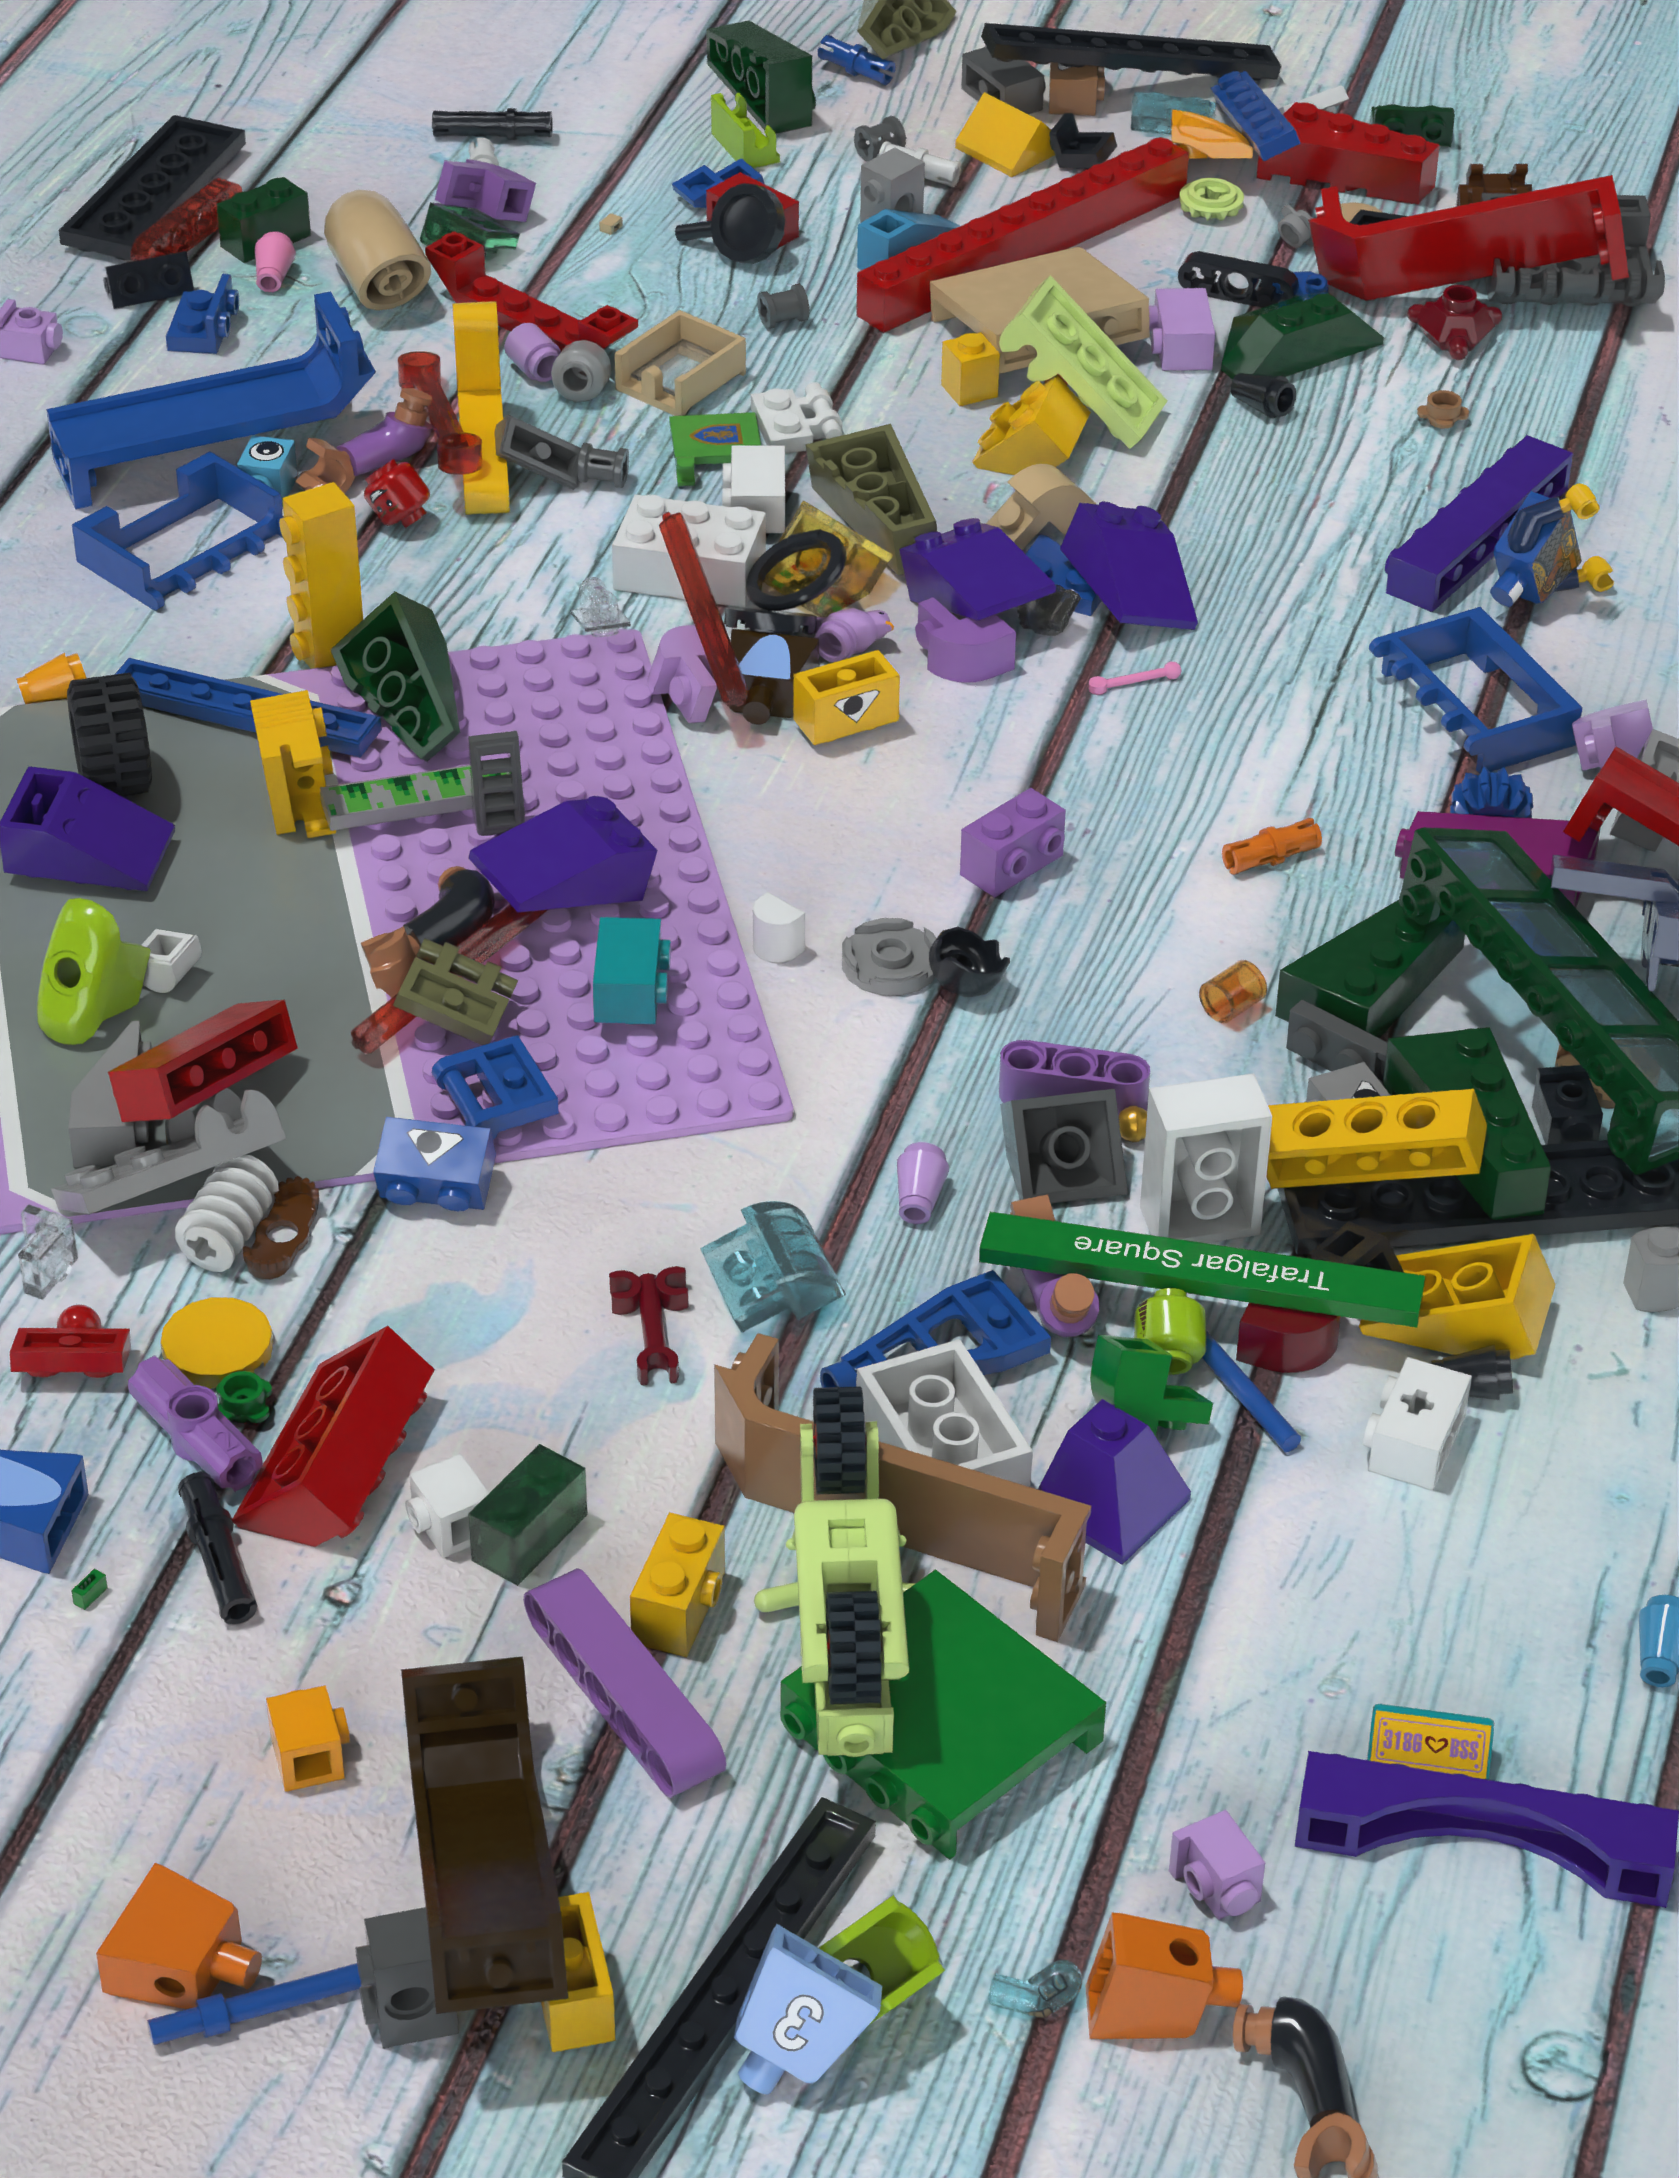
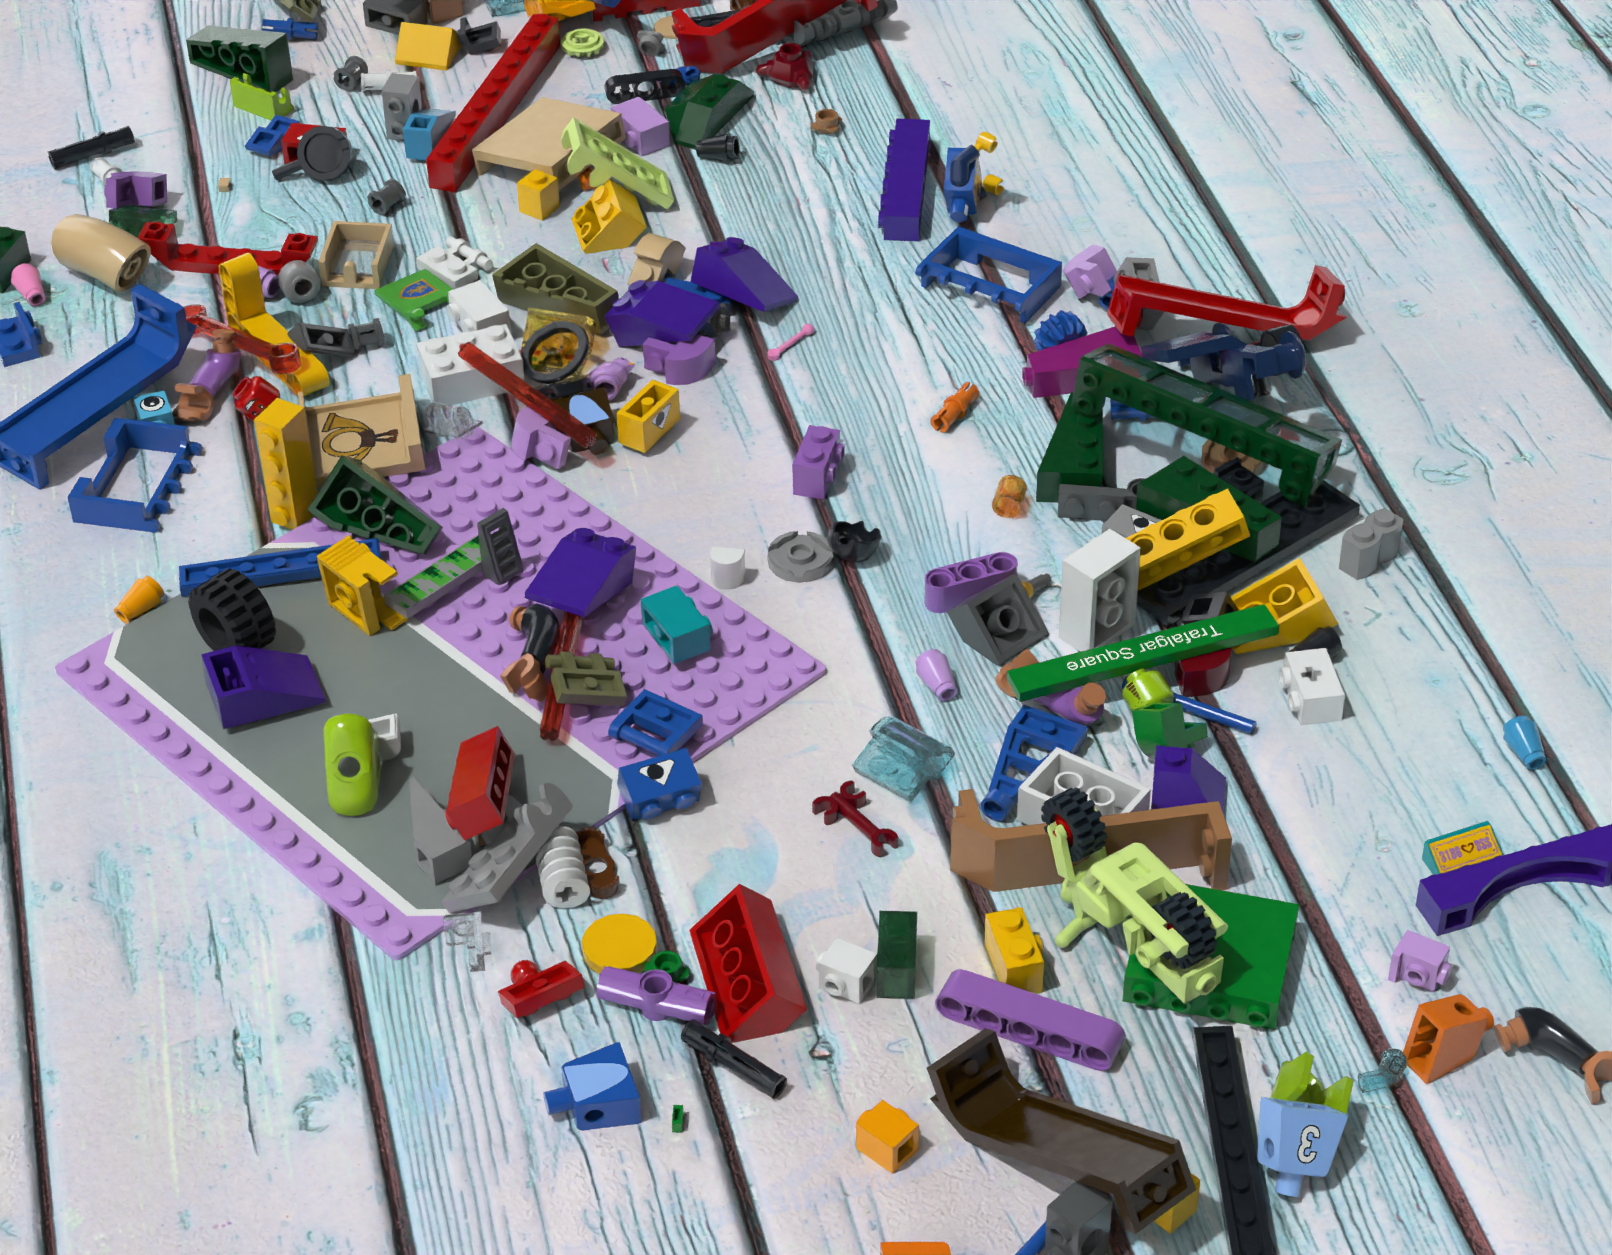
camera: 30 degrees left, 0 degrees up
(484, 586) = (374, 429): none -> tan panel

